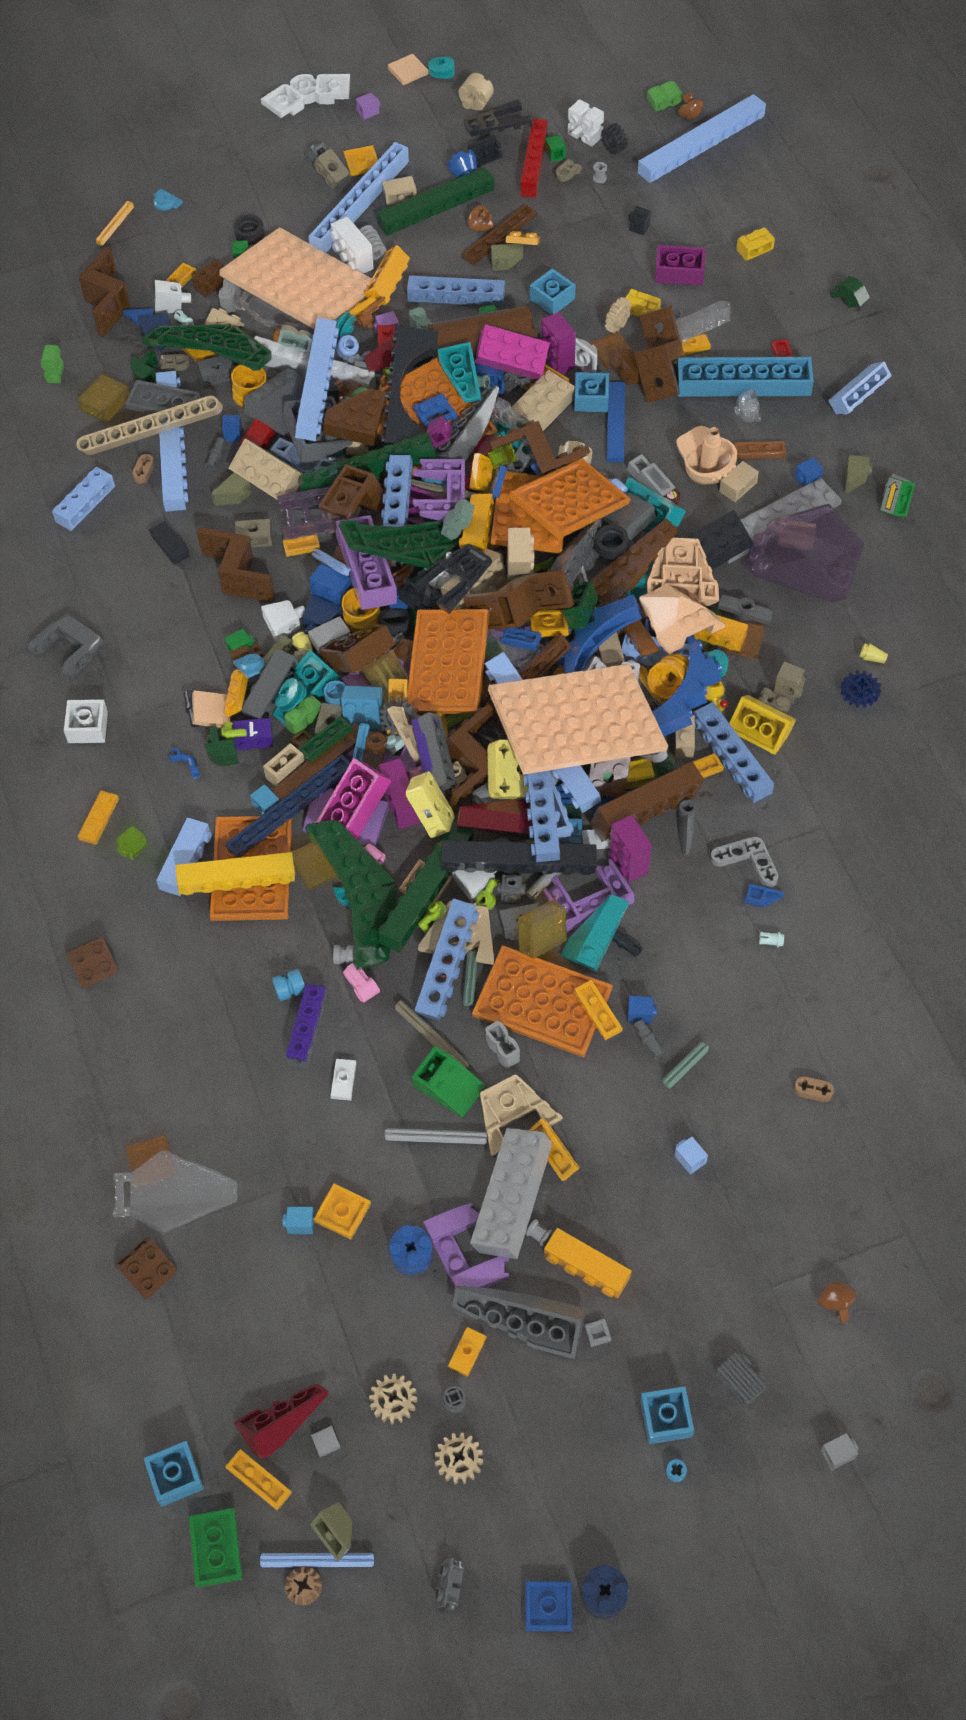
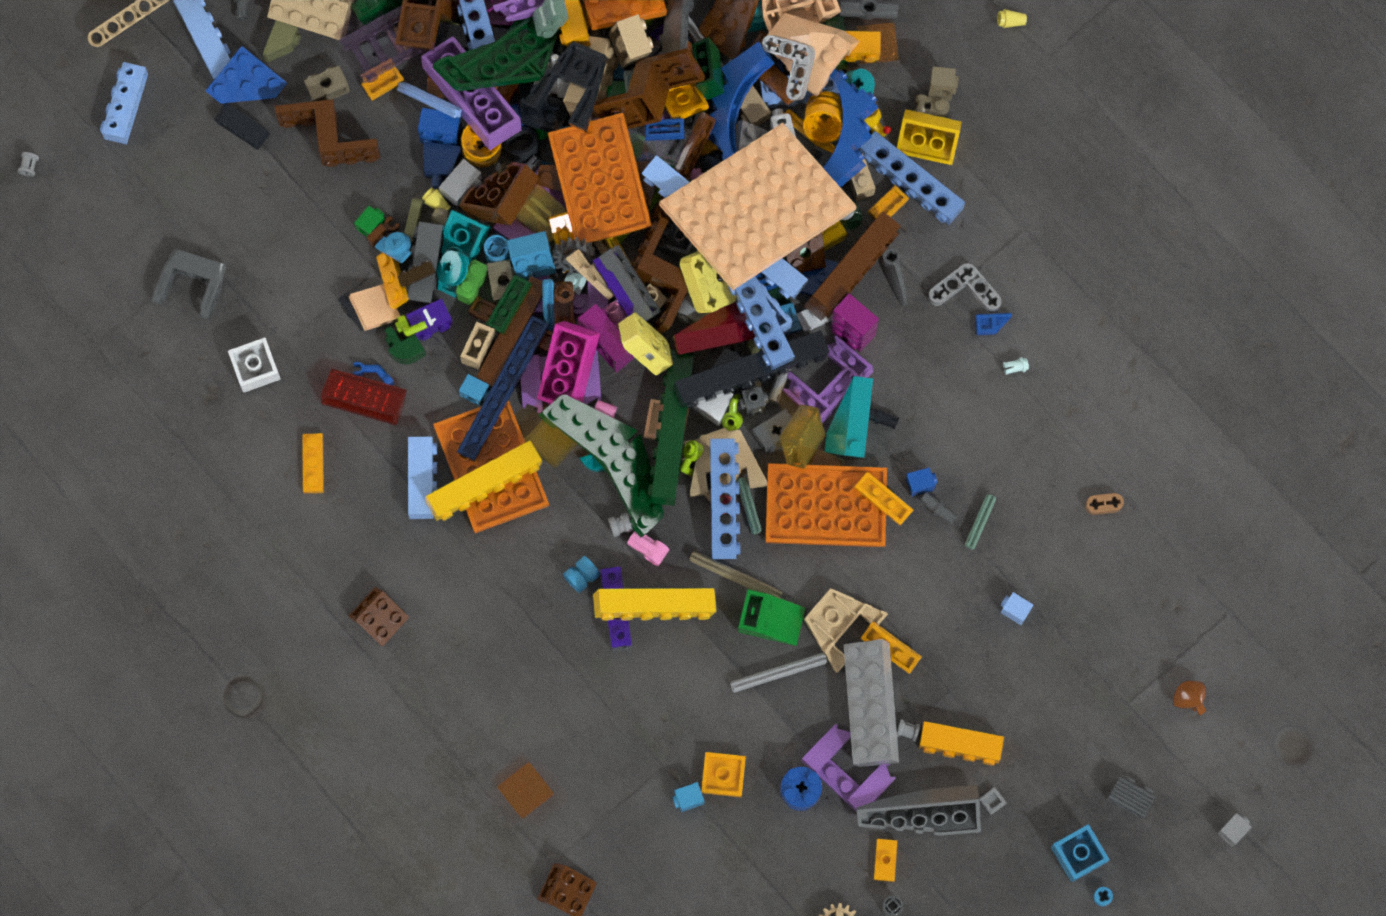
camera: 25 degrees left, 15 degrees up
(131, 843) = (360, 480): clear neon green brick -> none
(147, 469) = (175, 43): medium nougat beam -> none
(167, 777) = (363, 397): none -> clear red brick
(172, 1192) = (562, 814): clear windscreen -> none
(187, 507) = (245, 80): none -> blue plate
(256, 689) = (416, 273): none -> dark brown piece
(282, 618) = (401, 177): white torso -> none
(342, 1029) = (654, 603): none -> yellow brick
(343, 1079) = (670, 648): white plate -> none
(500, 1043) = (811, 566): light grey brick -> none
(662, 618) = (799, 60): none -> light grey beam
(851, 689) = (1019, 60): clear blue gear -> none

